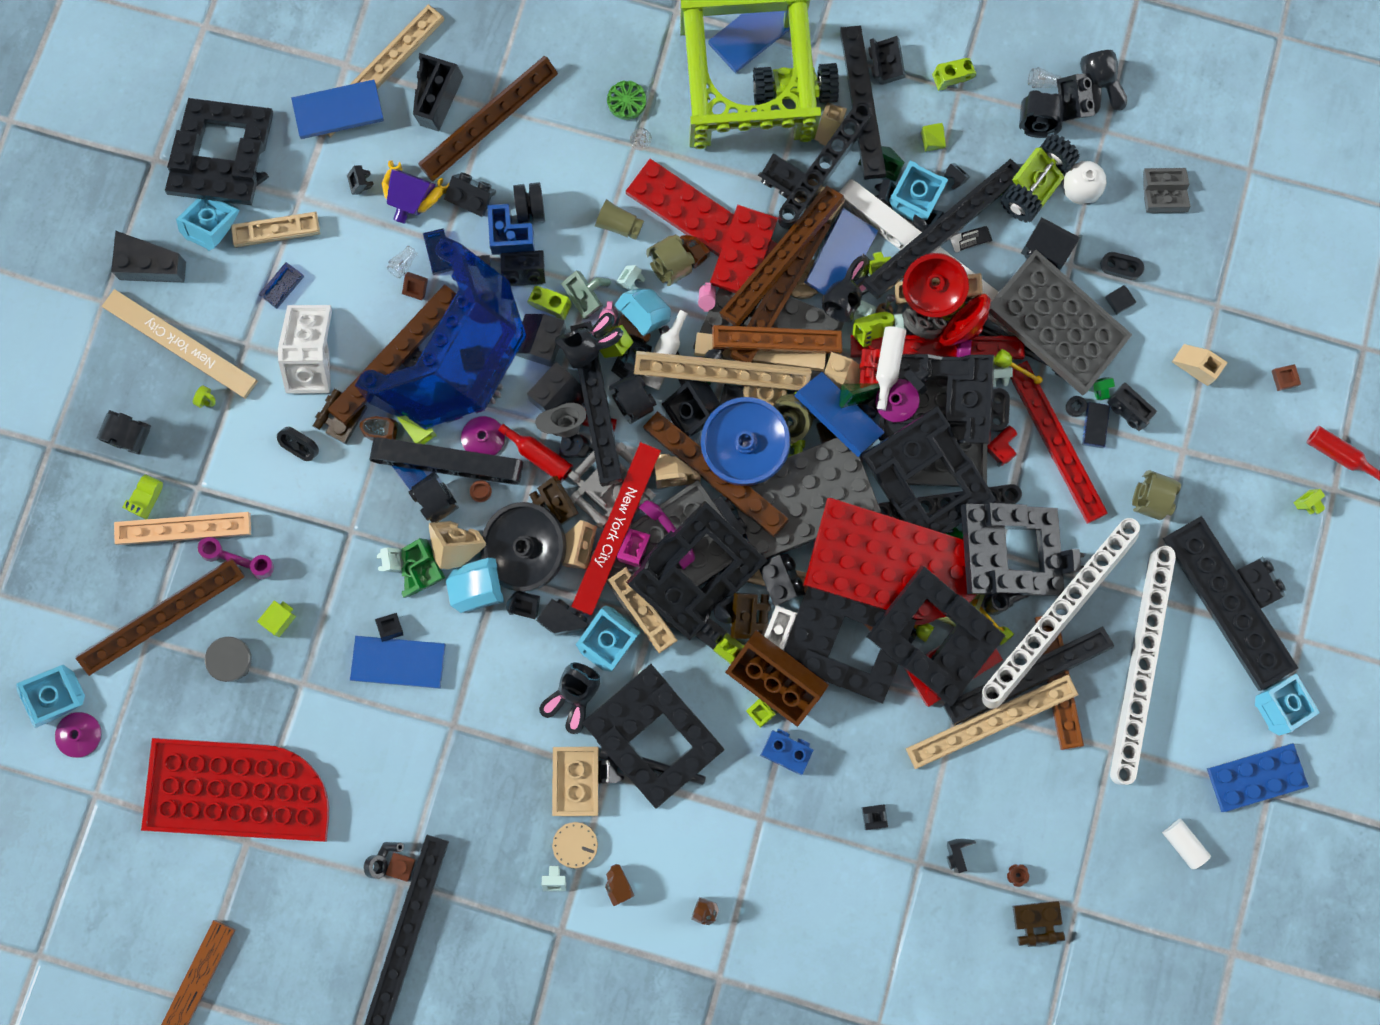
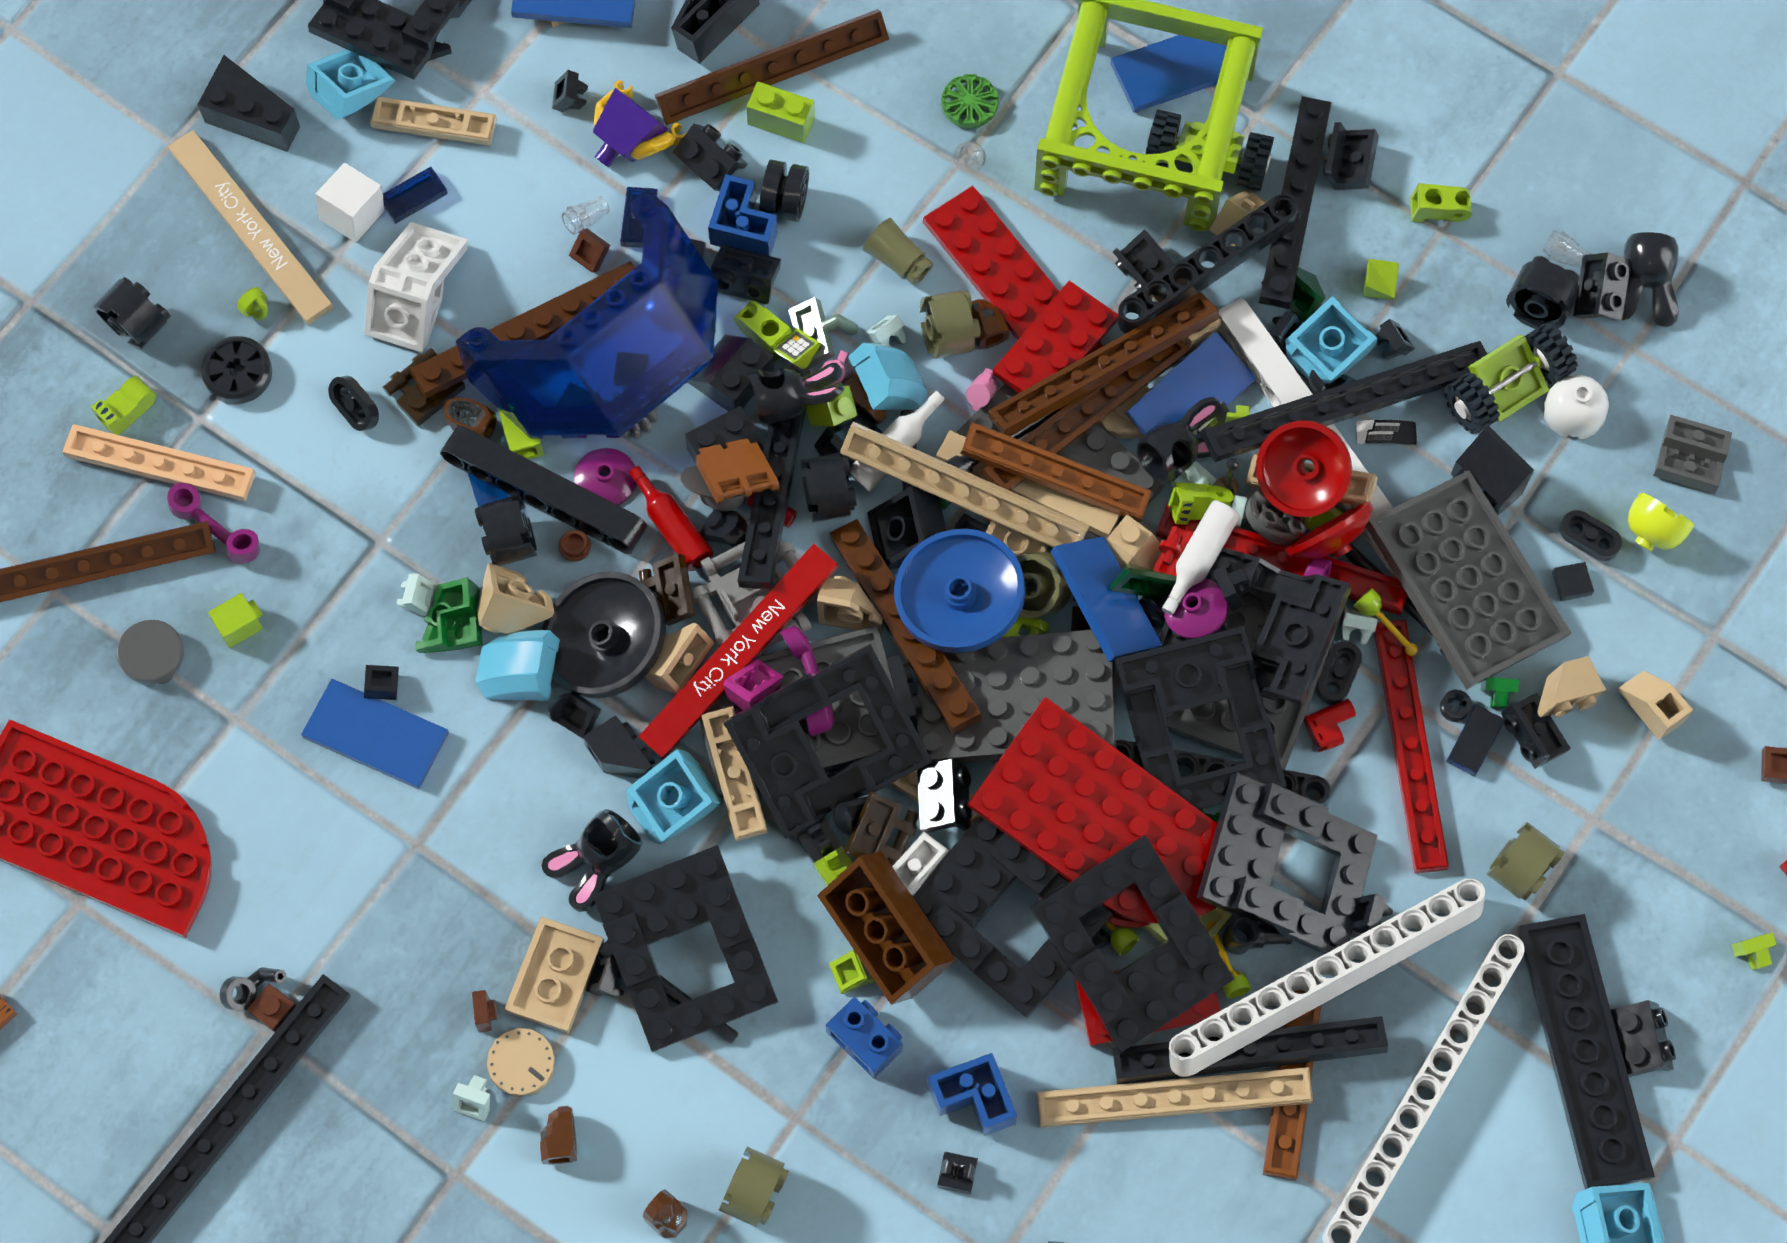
camera: 25 degrees right, 10 degrees down
(199, 438) = (227, 355): none -> black wheel
(242, 306) = (350, 202): none -> white head
(505, 148) = (780, 112): none -> lime brick
(539, 821) = (484, 1011): none -> copper plate
(570, 408) = (735, 469): none -> dark orange plate
(578, 309) = (798, 348): none -> slope
(754, 876) = (753, 1186): none -> olive brick
(871, 759) = (977, 1085): none -> blue brick
(1143, 371) = (1570, 687): none -> tan slope
(1162, 245) = (1657, 524): none -> neon yellow cylinder

